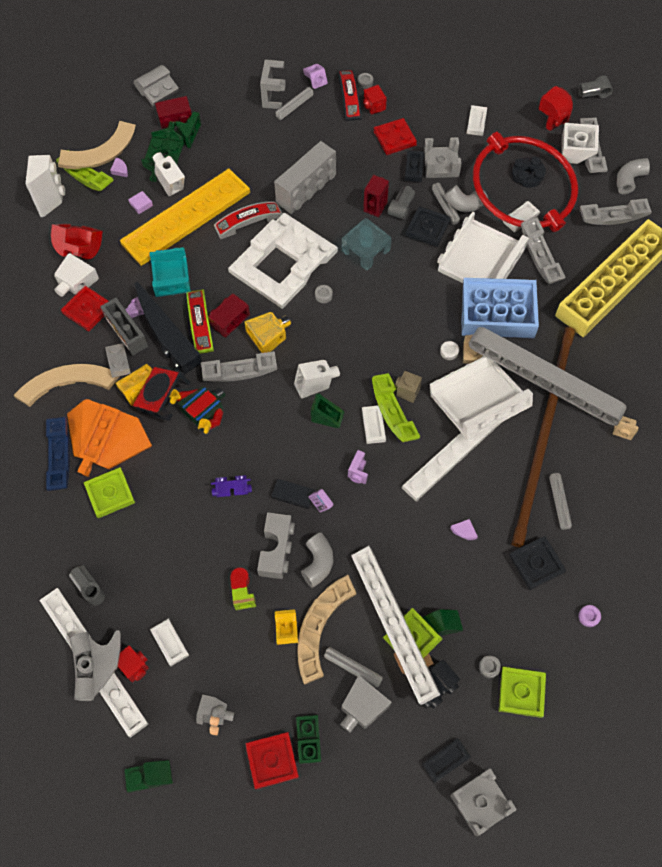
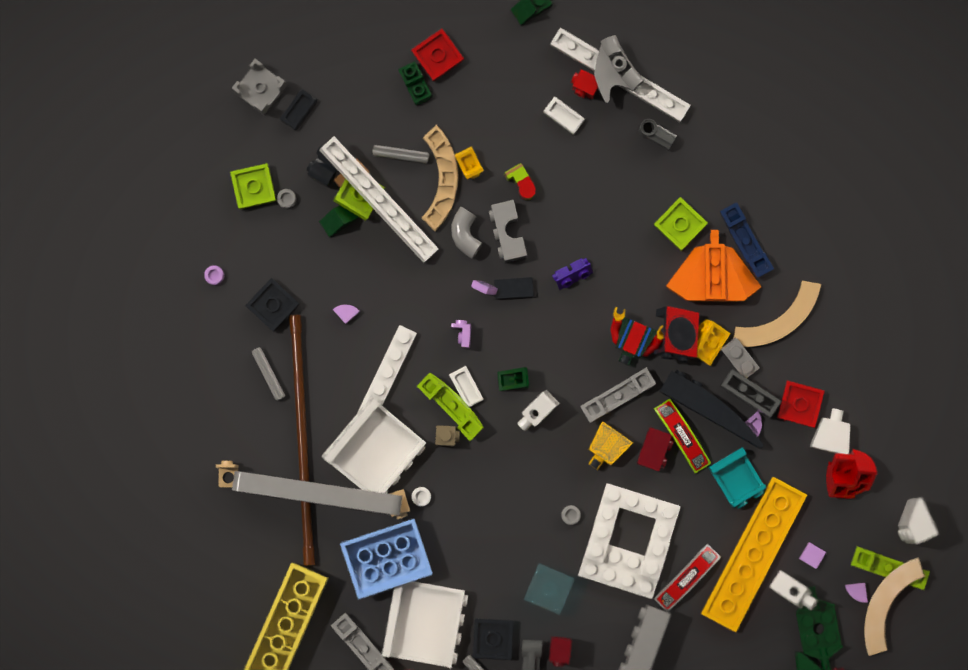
camera: 165 degrees right, 20 degrees up
(213, 712) = (499, 72): light grey piece -> none
(363, 705) = (380, 124): light grey torso -> none

